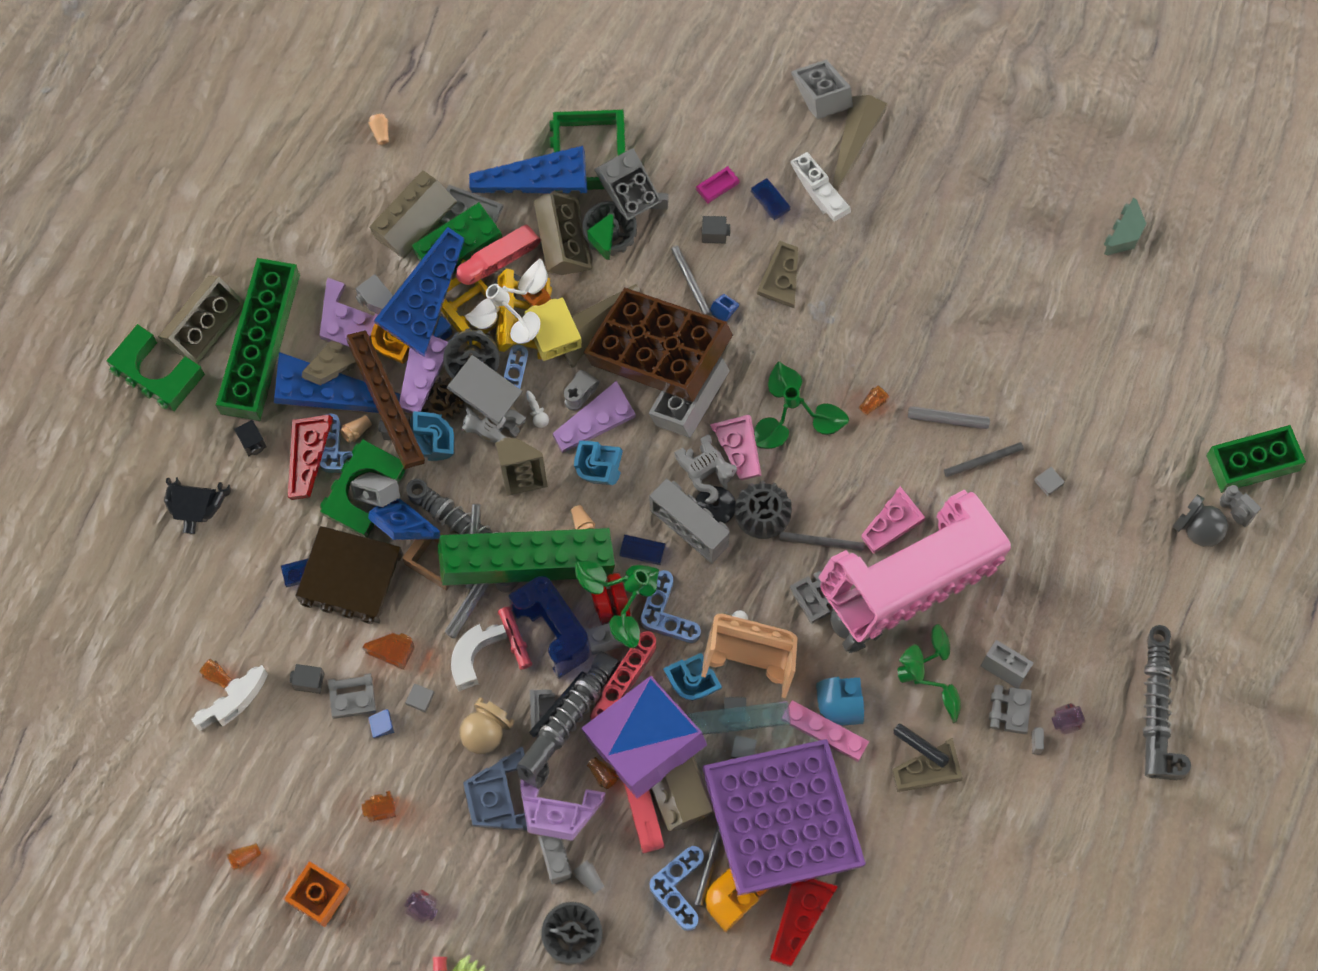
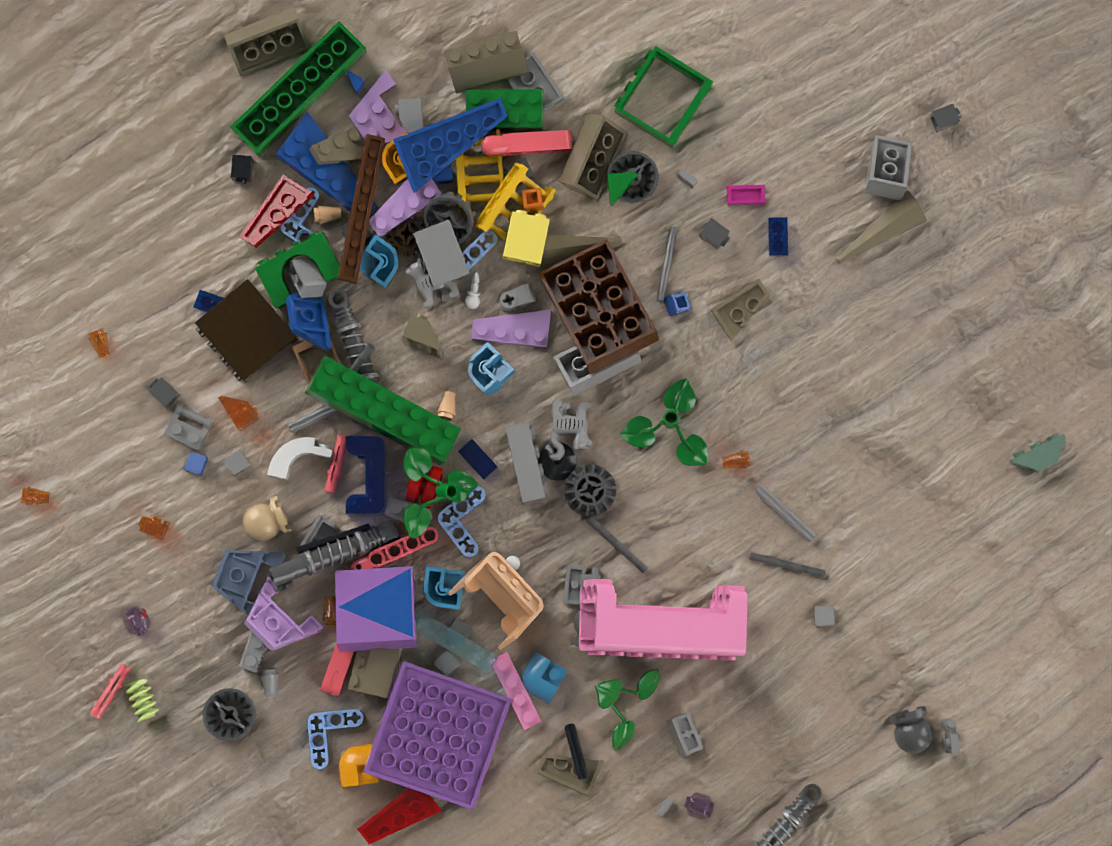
camera: 30 degrees right, 15 degrees up
(169, 390) = (187, 40): green arch -> none
(193, 503) = (165, 194): black torso -> none
(240, 693) = (107, 371): white slope -> none
(305, 302) = (356, 82): none -> blue slope
(316, 894) = (68, 562): orange brick -> none
(486, 314) = (484, 187): white plant -> none
(540, 174) = (607, 97): blue wing -> none
(628, 184) = (669, 152): light grey slope -> none
(709, 866) = (358, 735): flat silver bar -> none
(740, 445) = (608, 427): bright pink wing -> none
(819, 188) = (823, 254): white slope -> none
(839, 22) = (945, 117): none -> dark grey brick
(893, 521) = (681, 567): bright pink wing -> none
(1017, 712) = (667, 773): light grey plate -> none
(1256, 458) = (993, 708): green brick -> none

